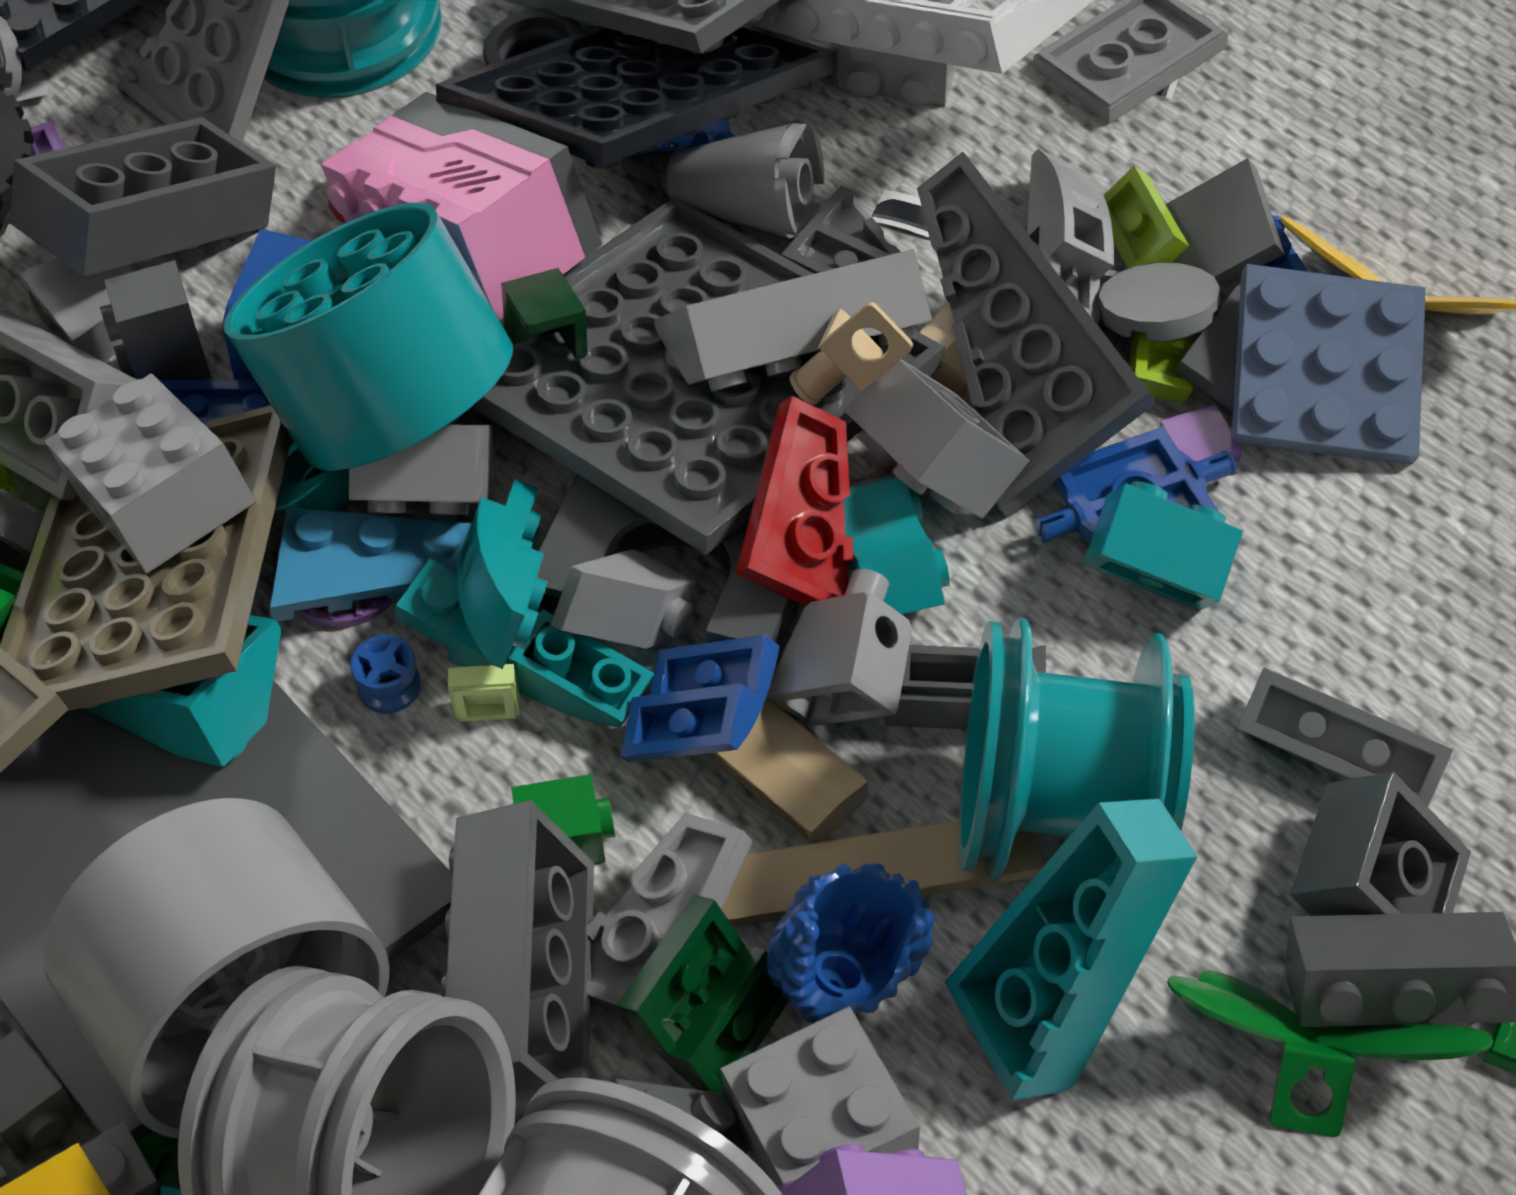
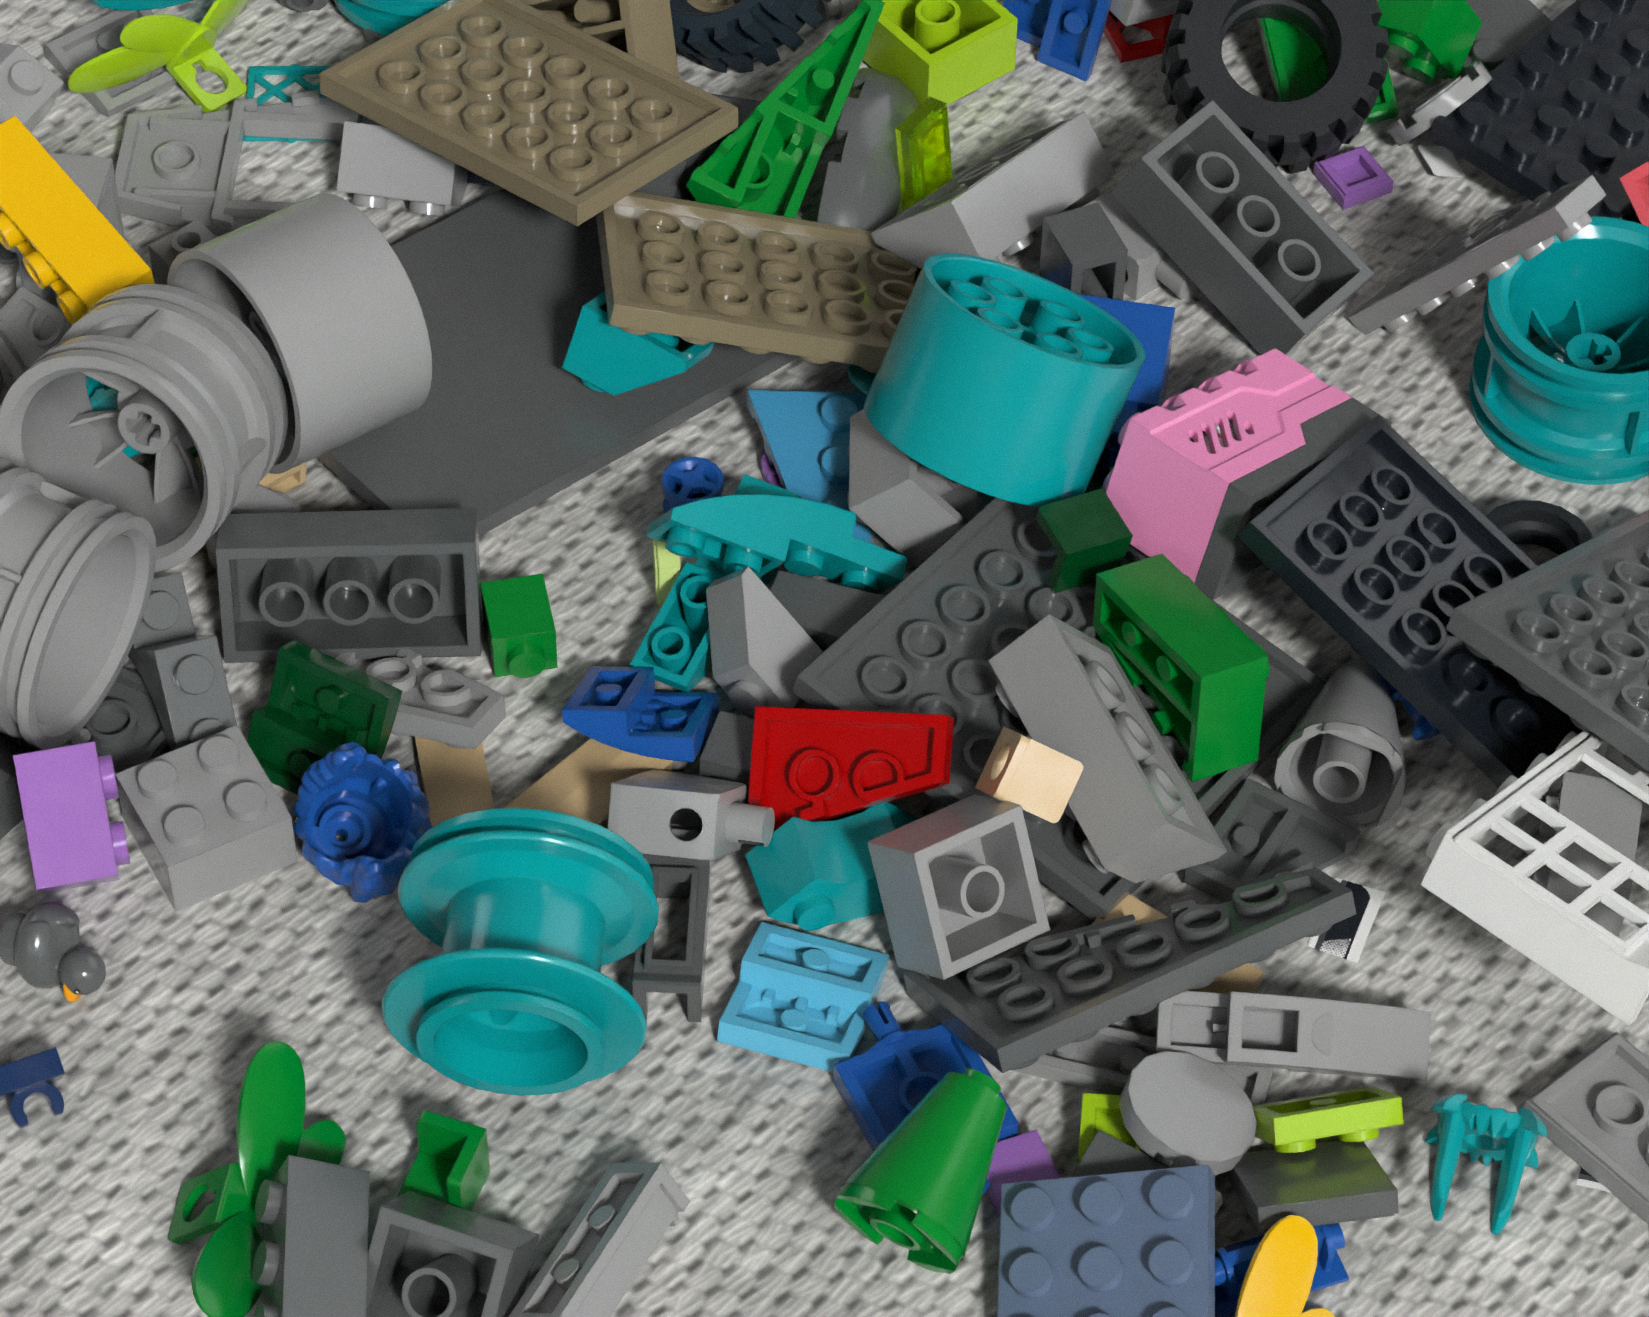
camera: 85 degrees right, 5 degrees down
(150, 471) = (848, 255): light grey brick -> none
(685, 253) = (1188, 658): none -> green wedge
(1010, 578) = (802, 997): none -> medium azure slope
(1070, 946) = (317, 955): teal wedge -> none
(1160, 123) = (1487, 1134): none -> teal piece
(1164, 545) = (830, 1094): teal brick -> none
(1248, 465) = (929, 1172): none -> green cone
(1256, 869) = (449, 1161): none -> green panel

